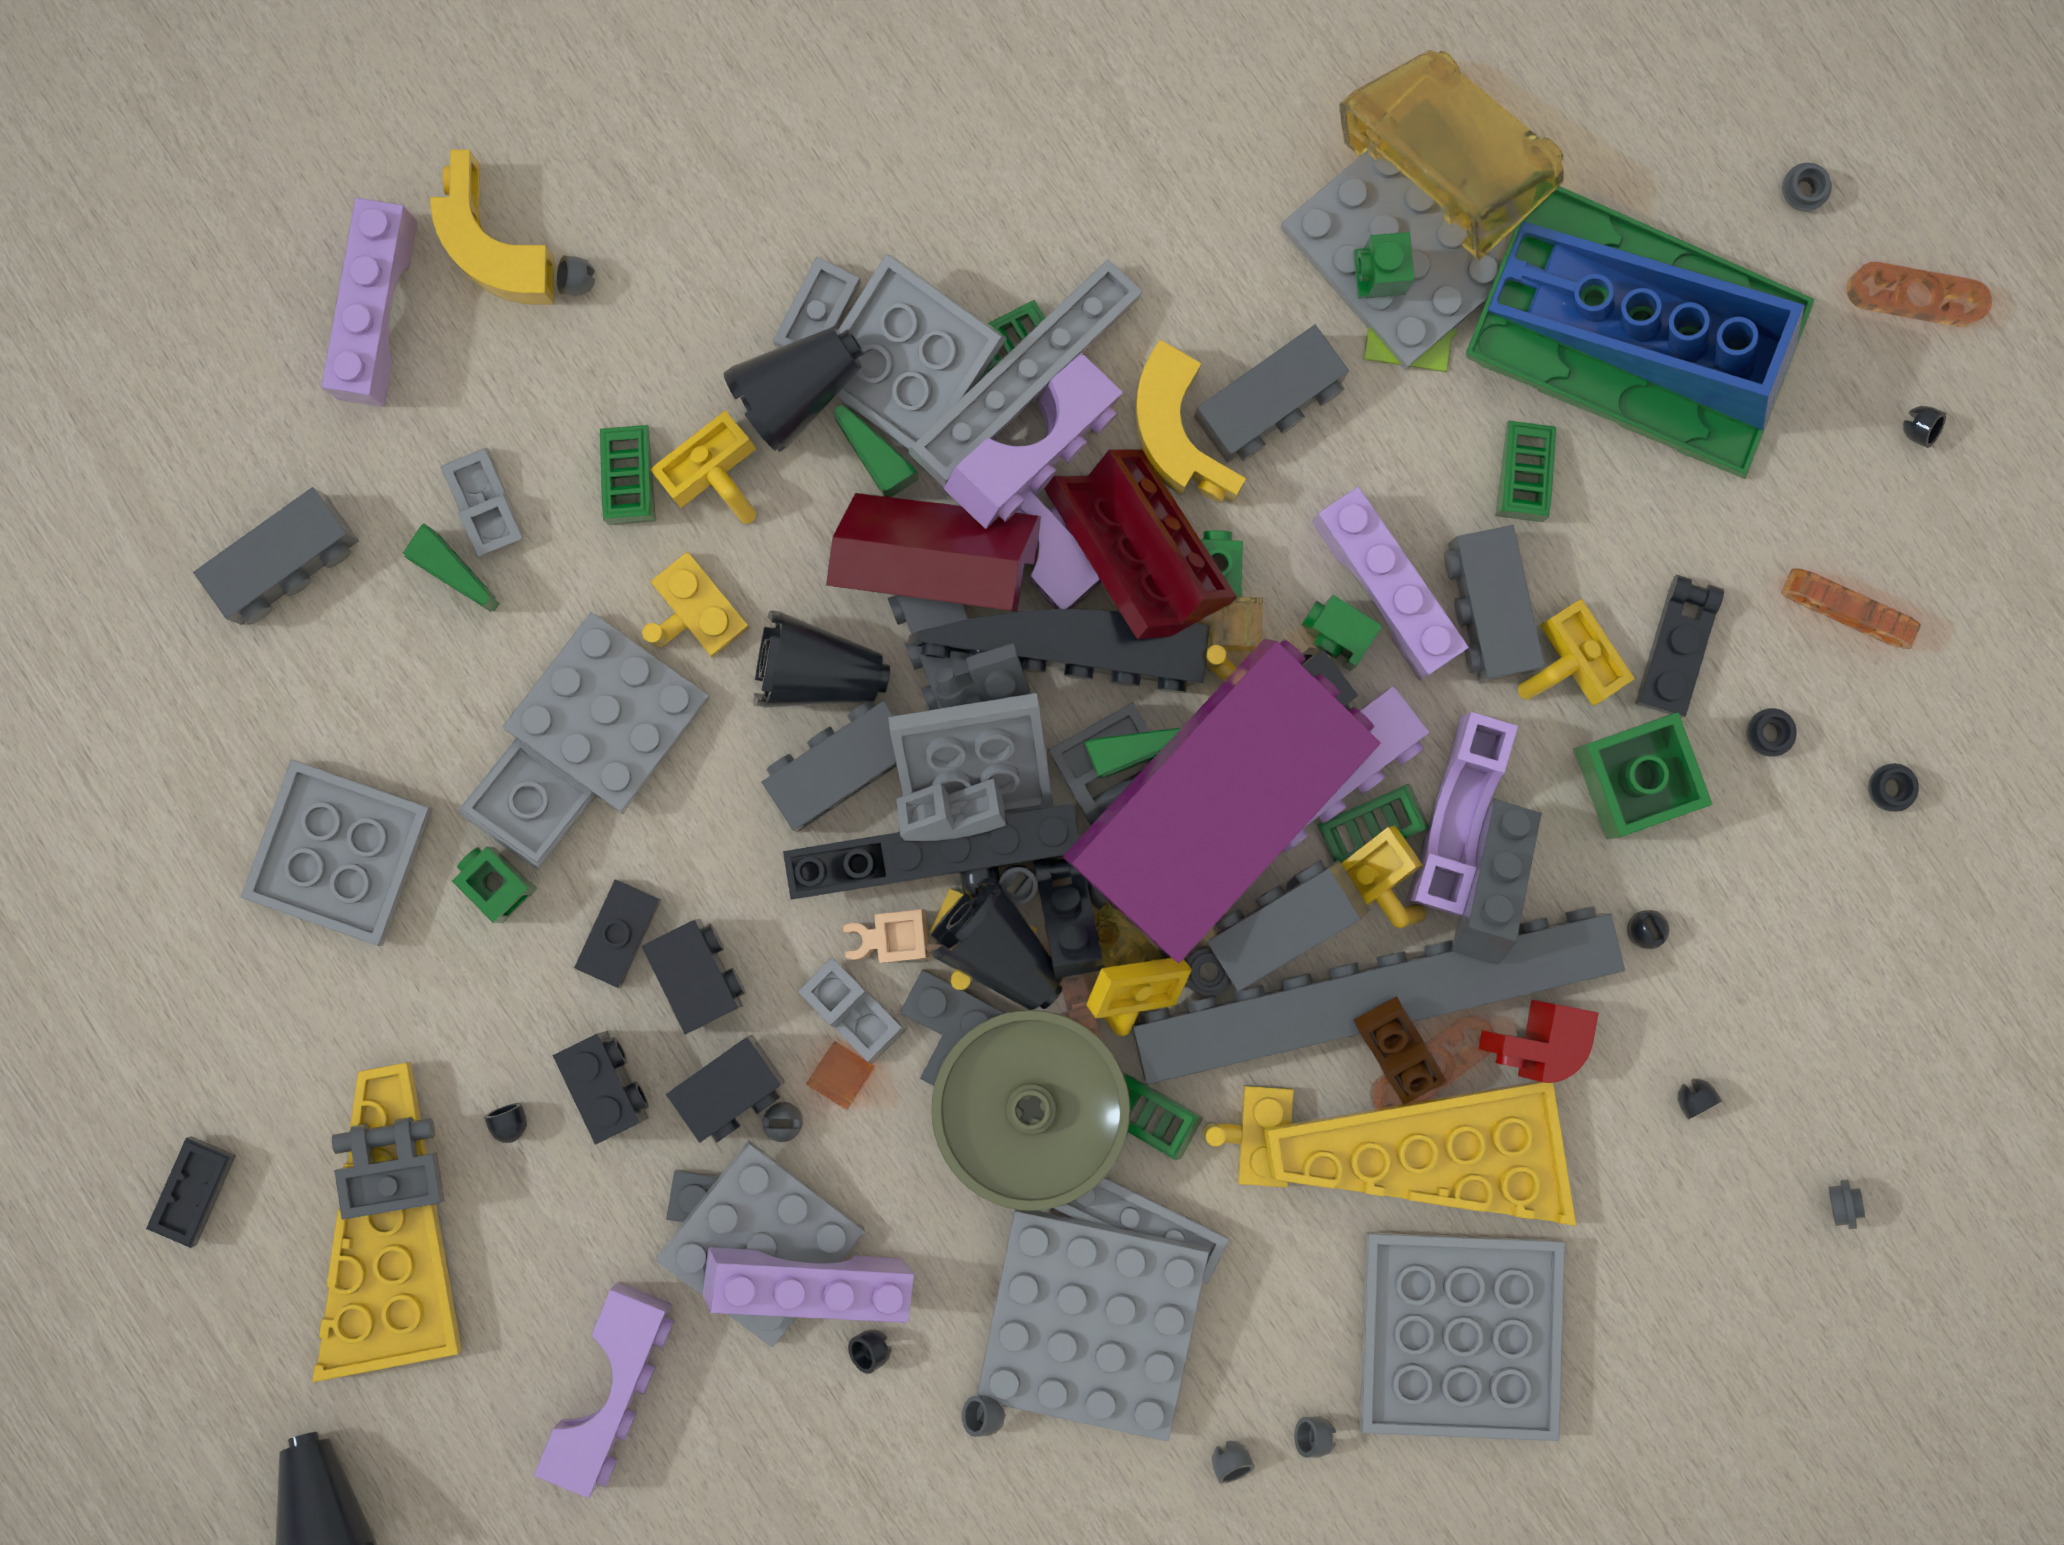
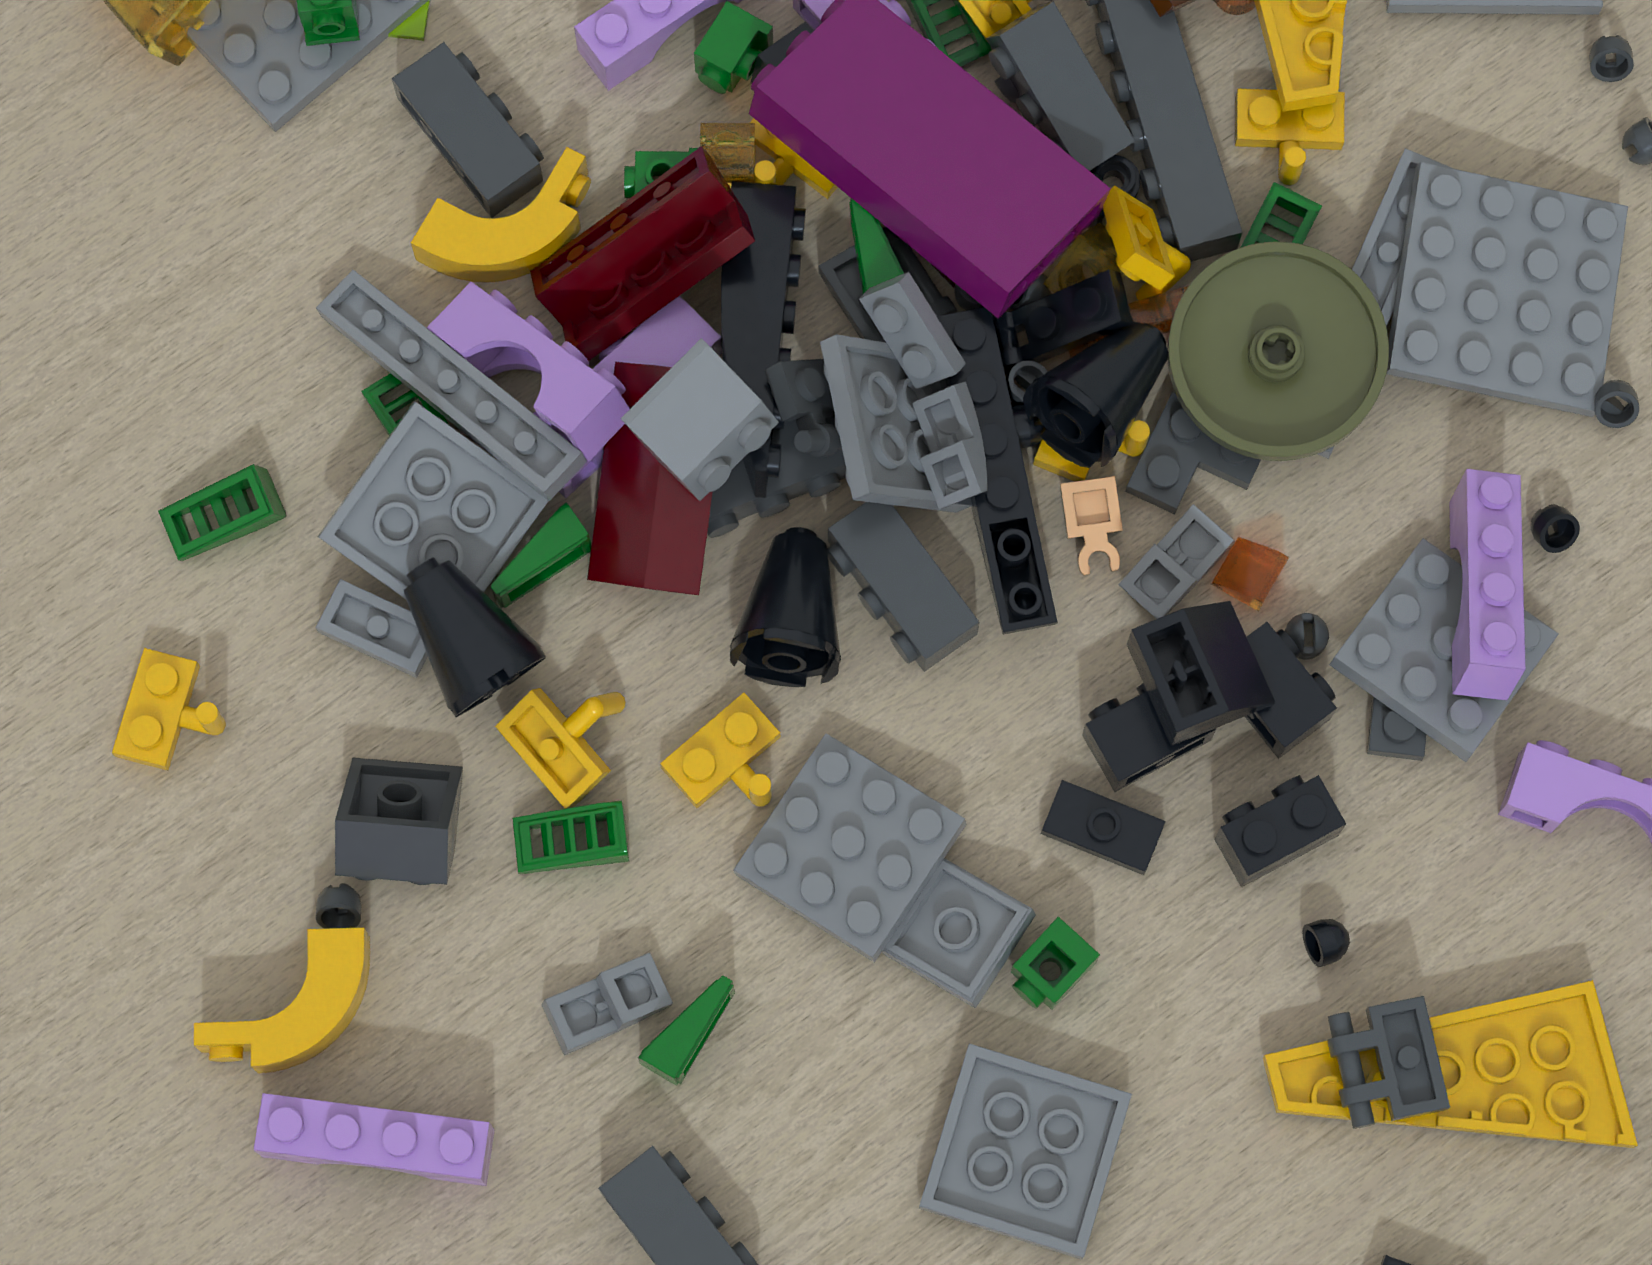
camera: 90 degrees left, 10 degrees down
(645, 325) = (398, 821): none -> dark grey slope
(727, 1022) = (1198, 670): none -> black slope
(754, 127) = (160, 709): none -> yellow plate
(941, 207) = (250, 520): none -> green slope
(955, 581) = (700, 420): none -> light grey slope
(1053, 778) = (912, 331): none -> light grey plate

